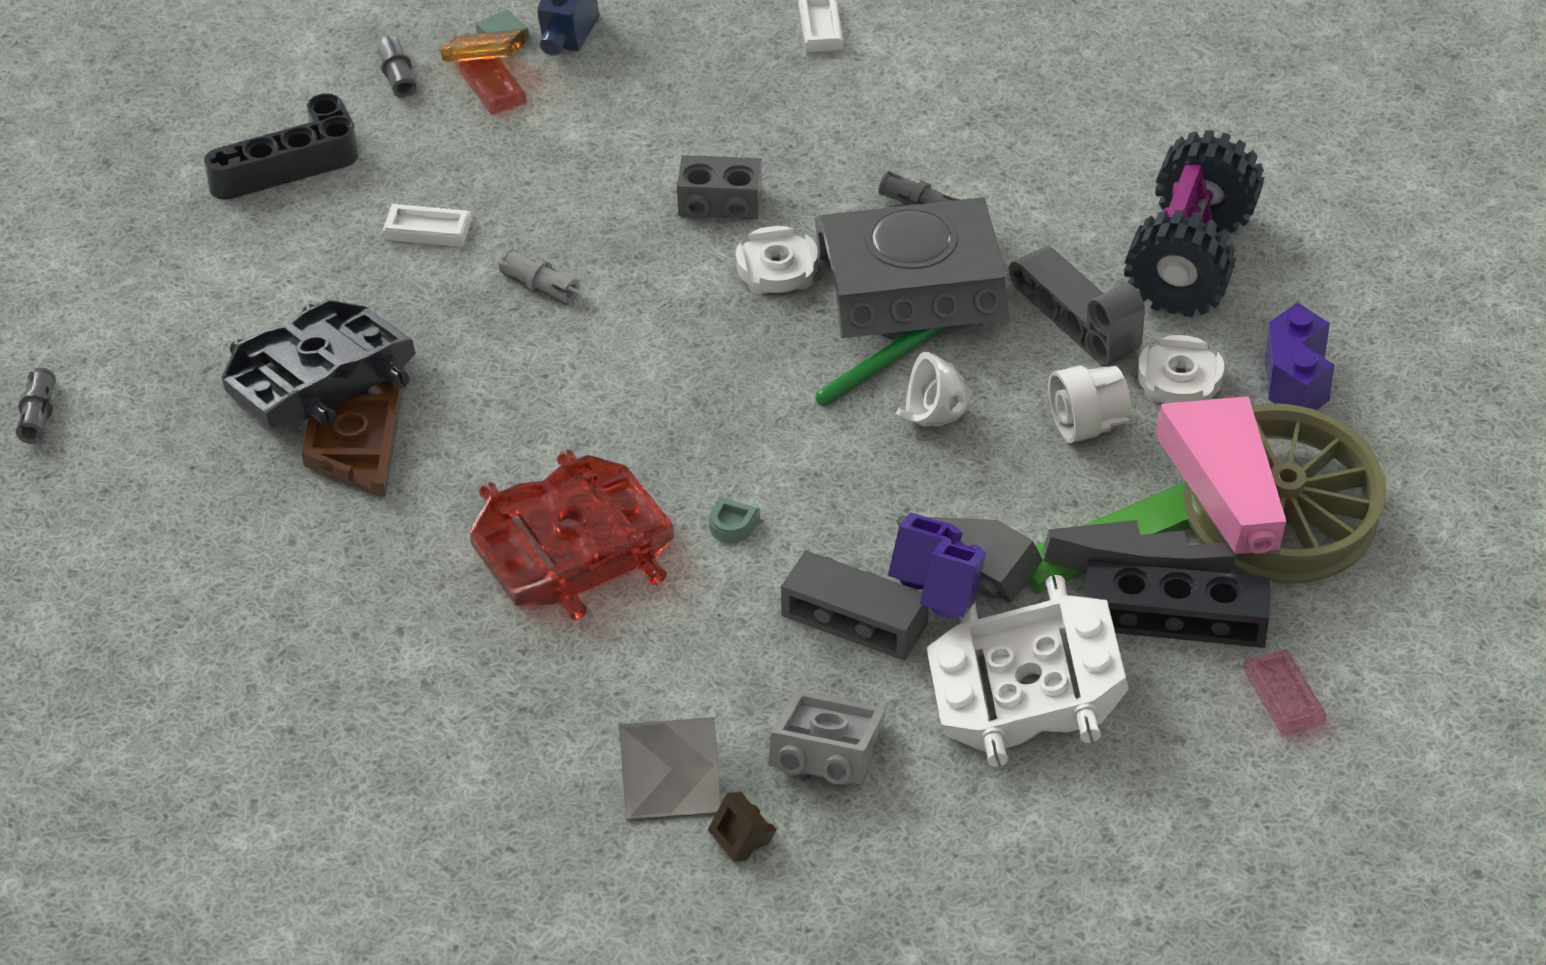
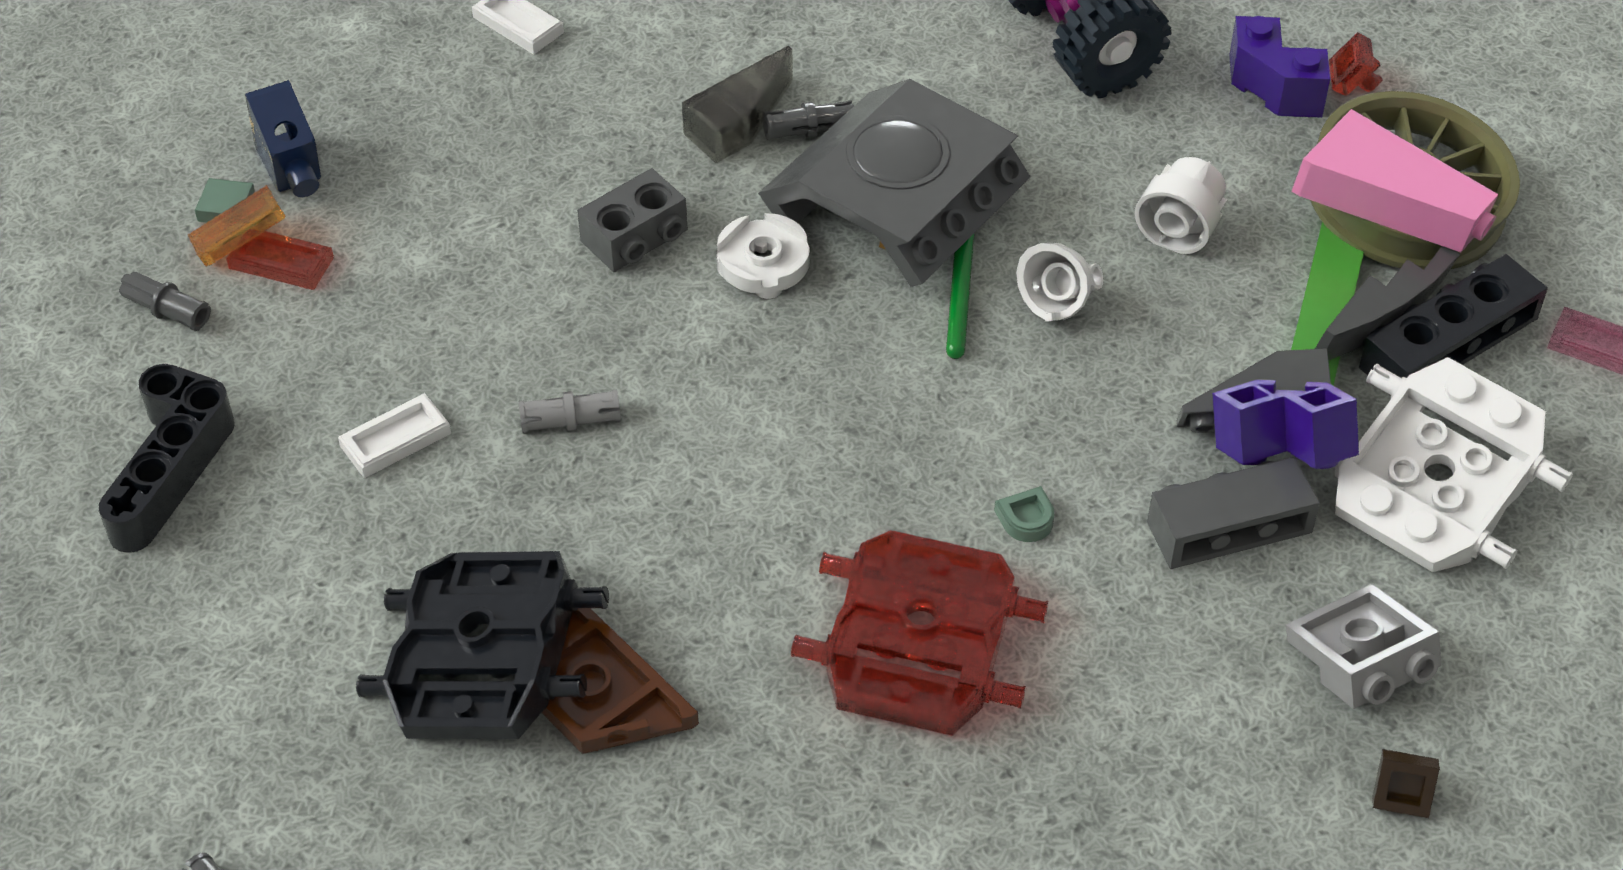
camera: 45 degrees left, 5 degrees up
(670, 768) = (1290, 777): piece -> none
(864, 157) = (732, 111): none -> clear smoke slope
(1099, 322) = (1073, 132): dark grey beam -> none
(1165, 385) = (1219, 120): white plate -> none
(1364, 398) = (1354, 66): none -> clear red tile

